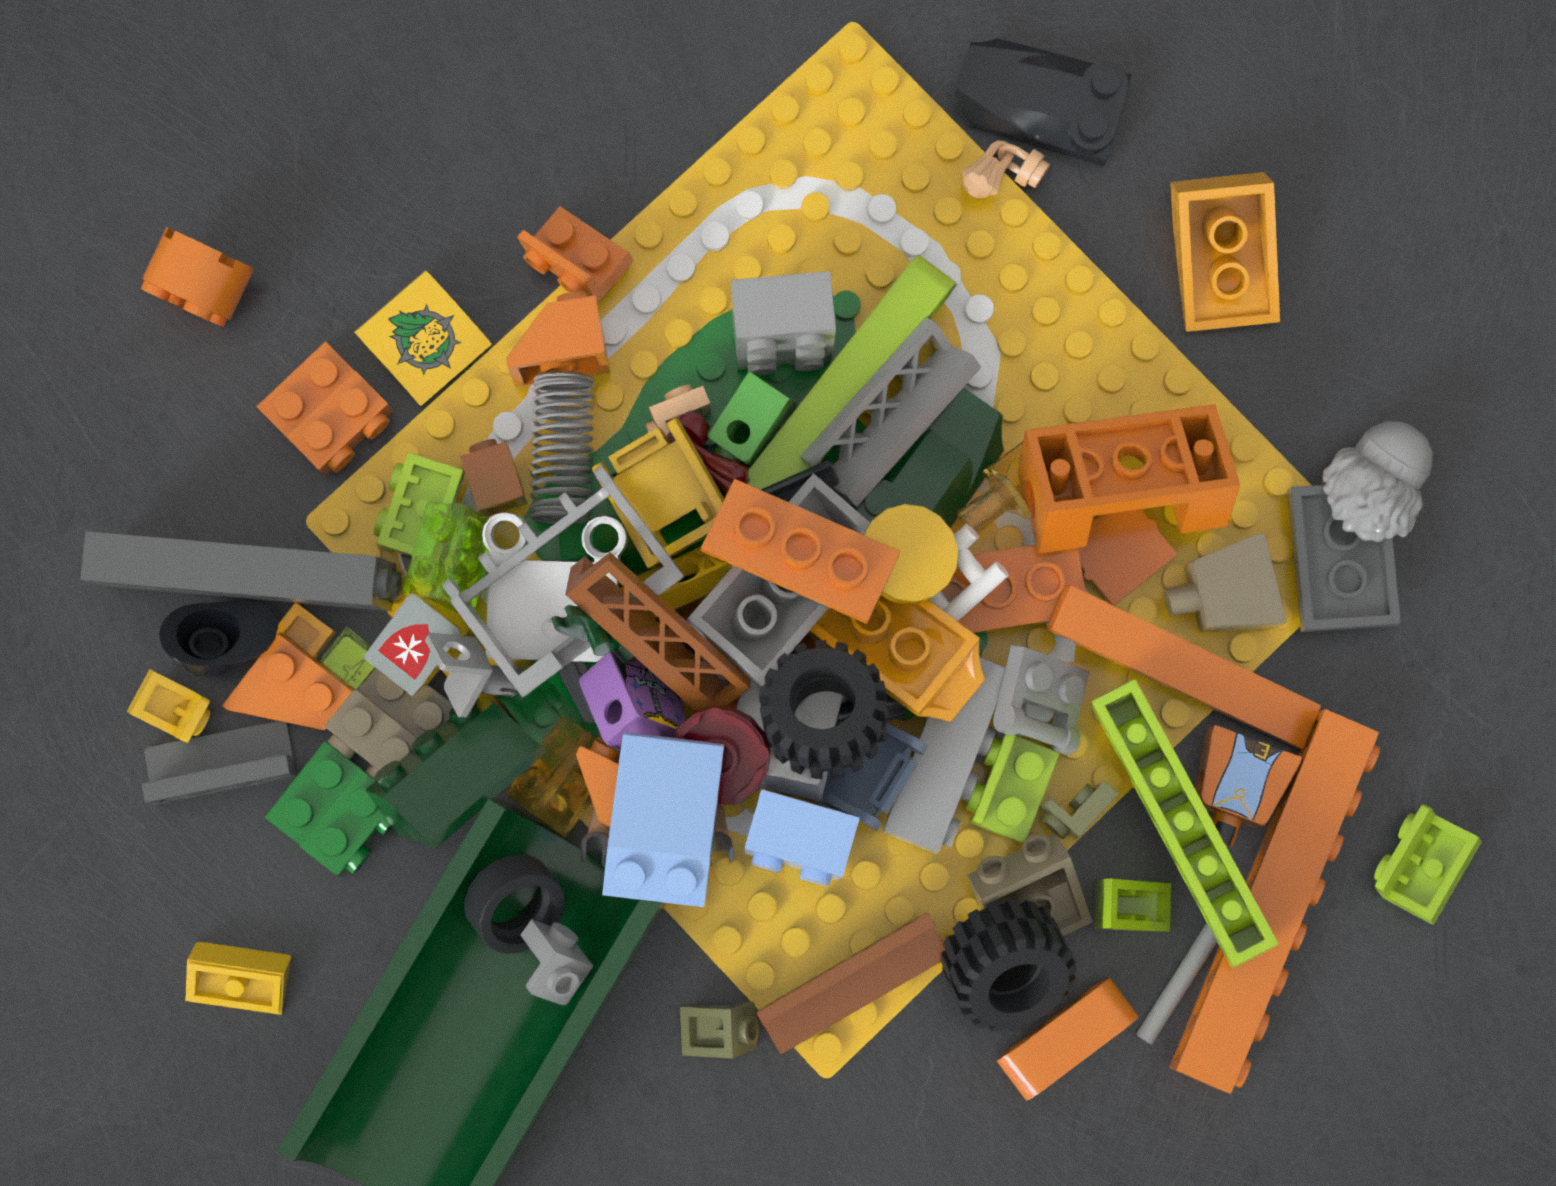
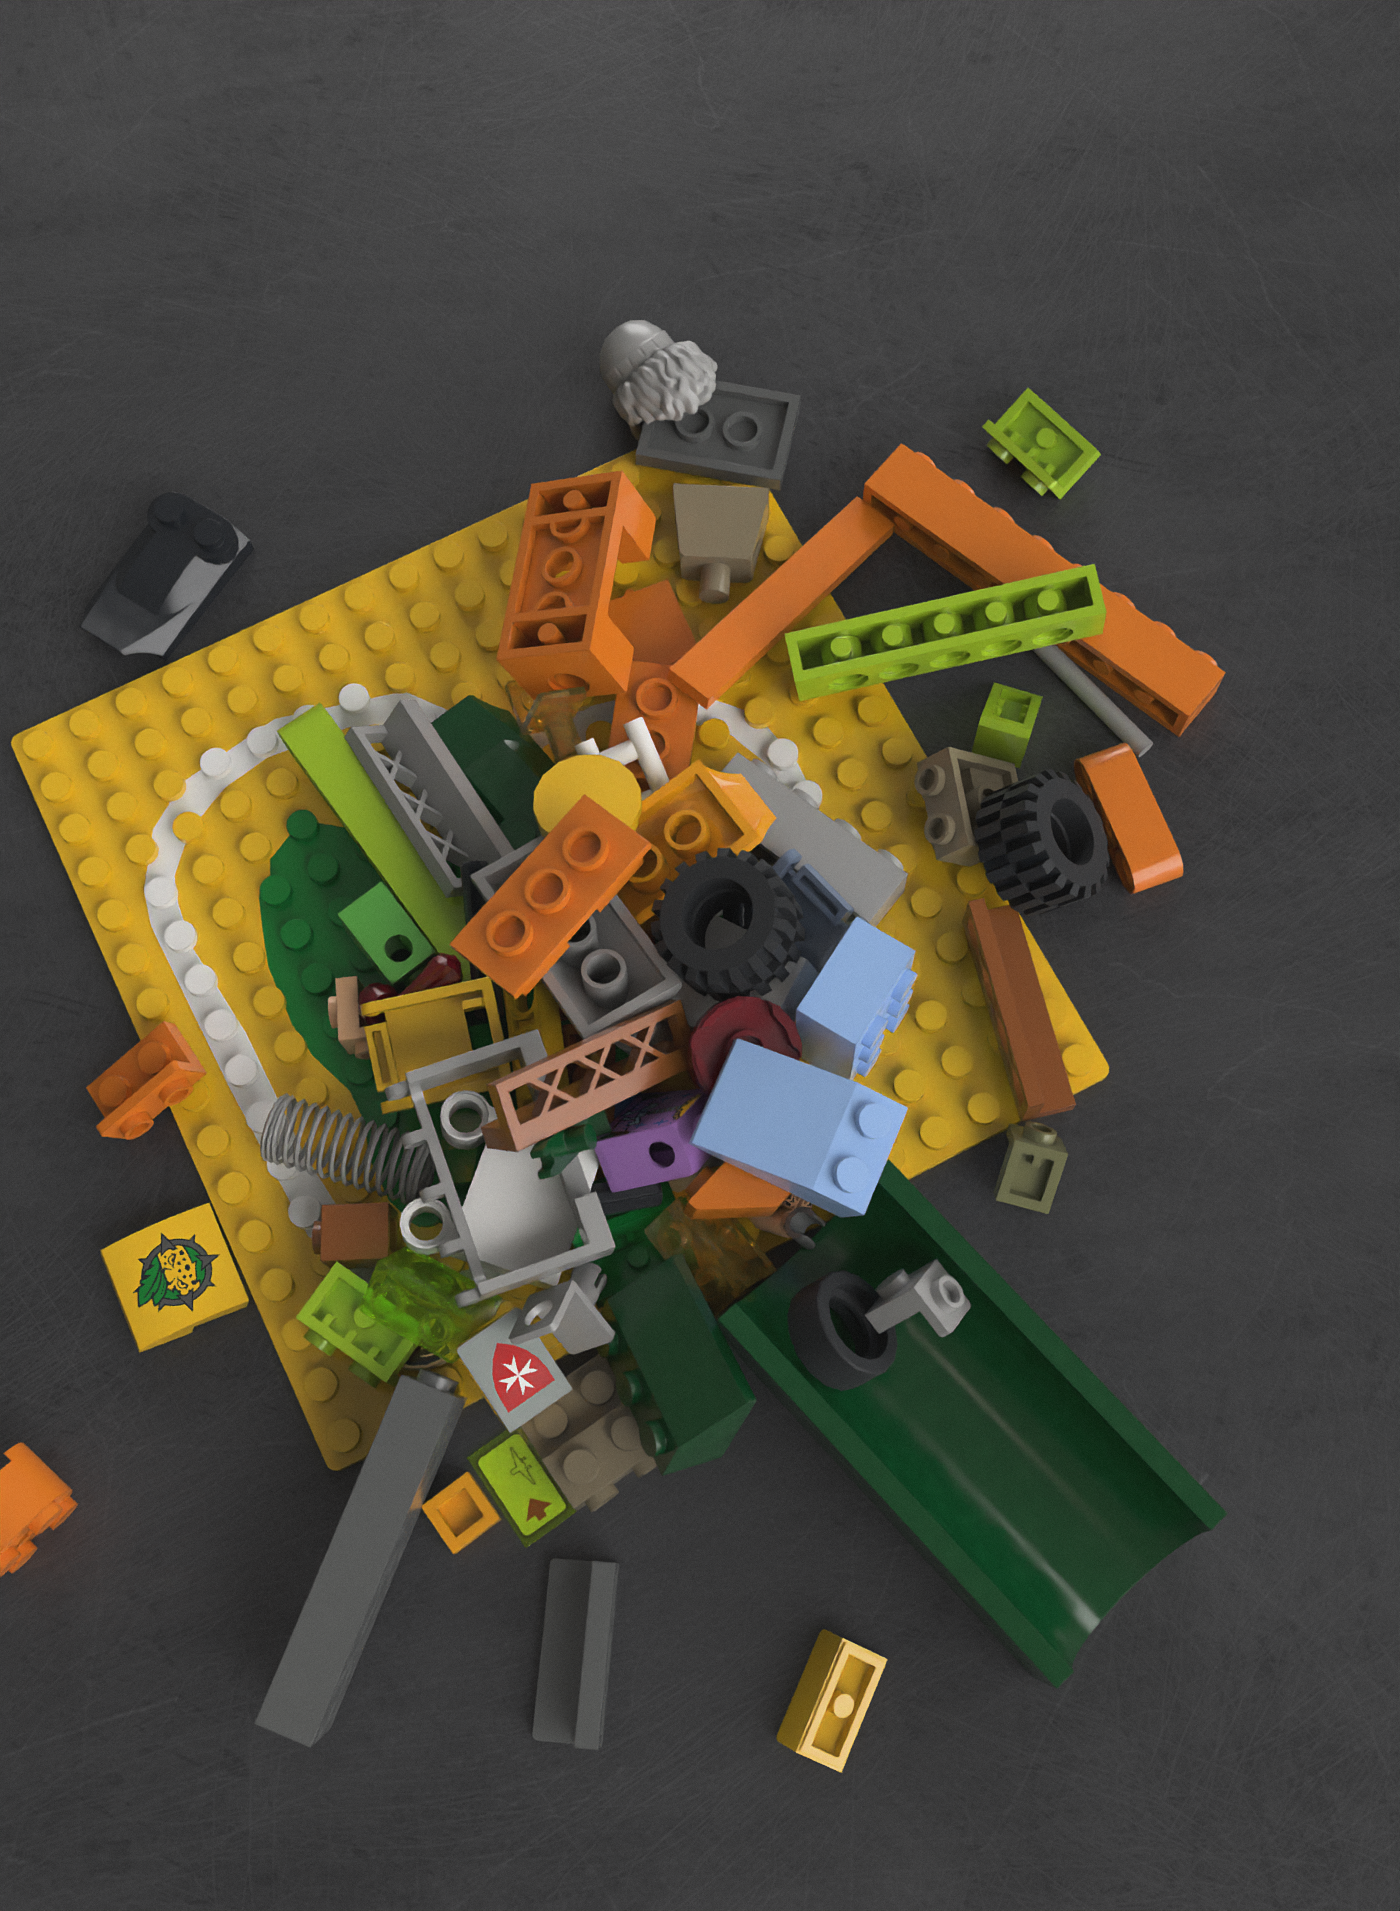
camera: 65 degrees left, 10 degrees down
(170, 706) = (494, 1690): yellow bracket -> none
(217, 635) = (429, 1605): black piece -> none
(289, 687) = (516, 1540): orange wing -> none
(326, 410) = (215, 1409): orange plate -> none
(330, 811) = (671, 1531): green plate -> none
(561, 339) = (231, 1104): orange slope -> none
(783, 322) = (296, 869): light grey piece -> none
(985, 175) = (219, 650): light nougat piece -> none
(1012, 787) = (858, 794): lime bracket -> none
(1046, 684) = (765, 725): light grey plate -> none
(1087, 805) = (900, 727): olive bracket -> none
(1226, 251) = (379, 454): light orange slope -> none
(1241, 780) = (905, 573): torso -> none

